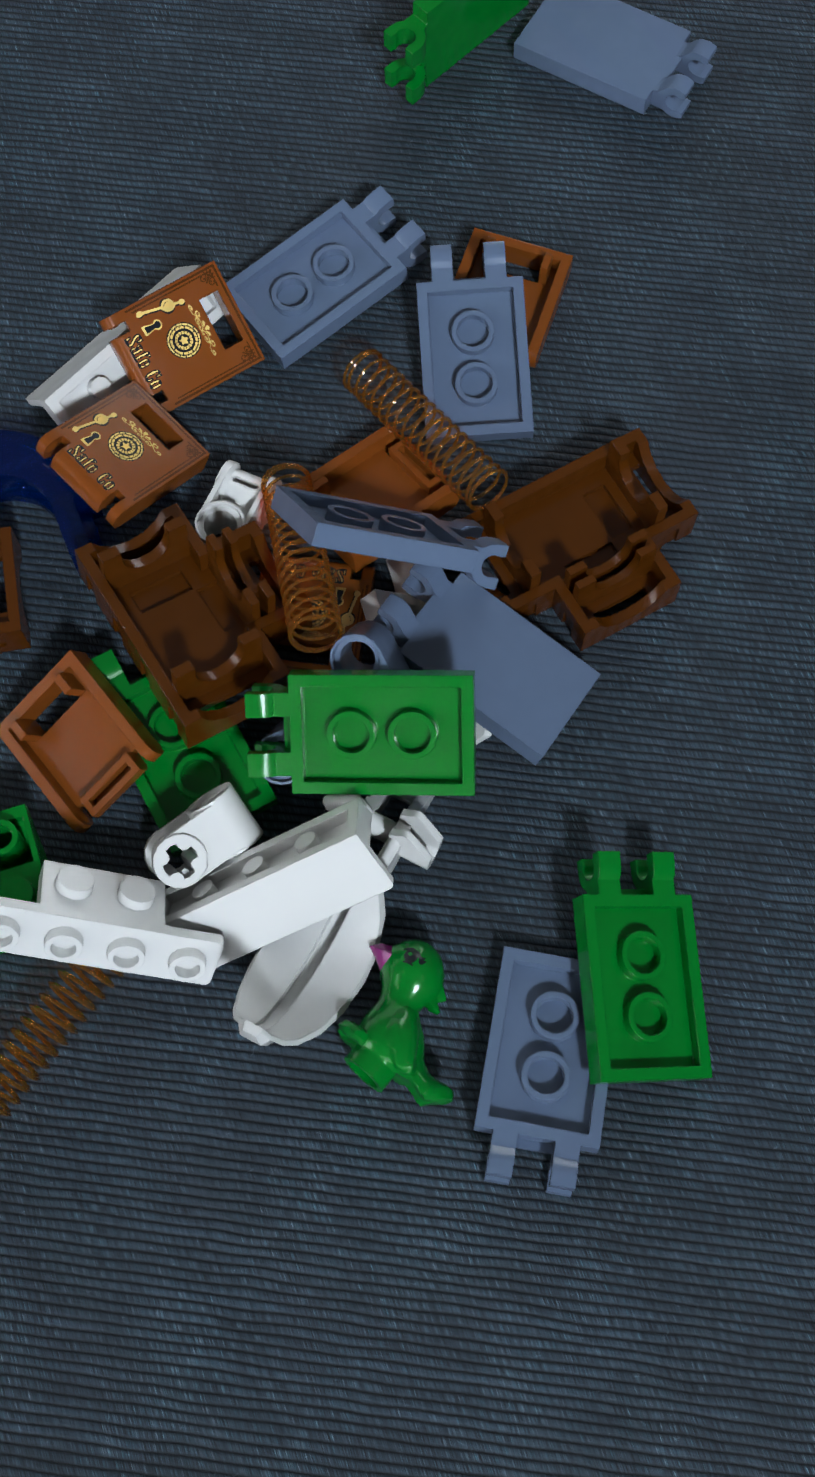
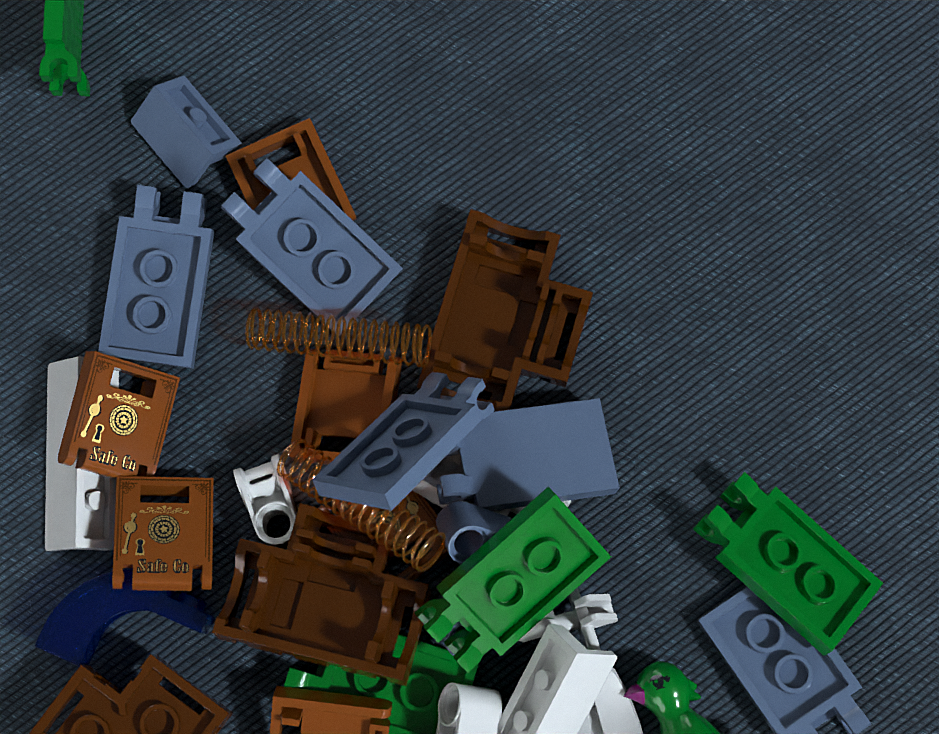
camera: 45 degrees left, 10 degrees up
(462, 183) = (183, 129): none -> sand blue panel

